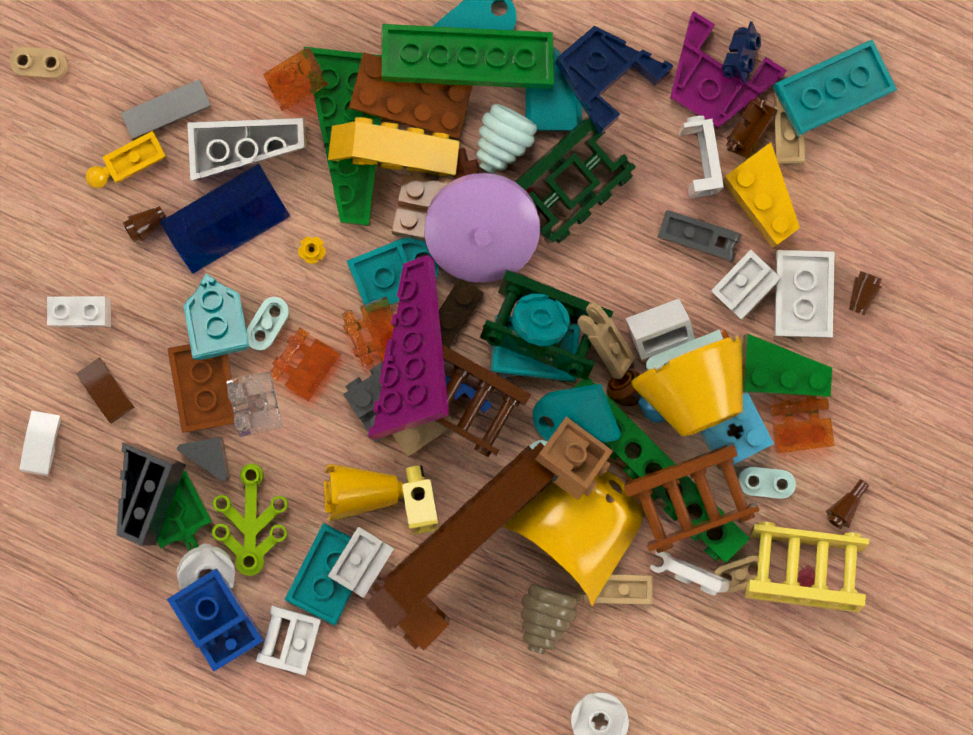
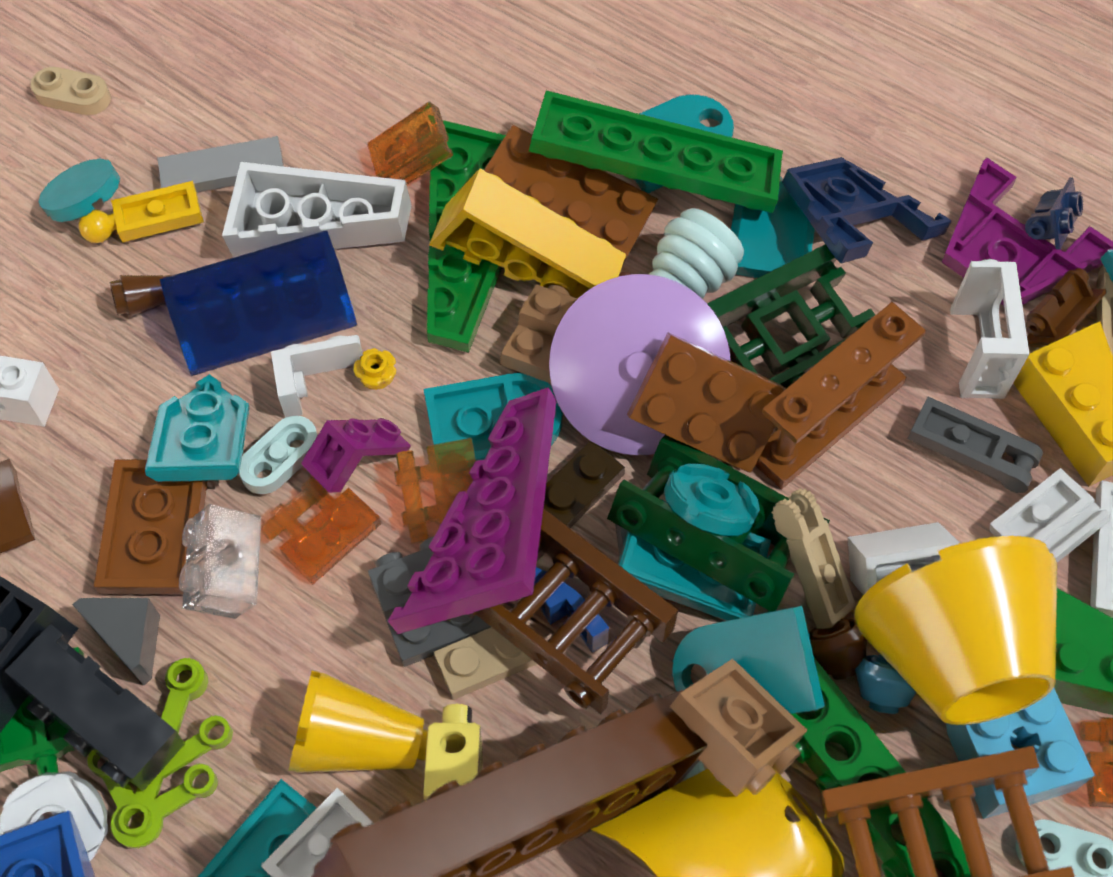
camera: 15 degrees right, 25 degrees down
(77, 152) = (77, 188): none -> teal tile
(214, 513) = (94, 710): none -> black wedge
(262, 274) = (301, 360): none -> white bracket
(314, 314) = (343, 445): none -> magenta bracket
(530, 251) = (706, 402): none -> dark orange plate
(608, 227) = (836, 394): none -> dark orange fence

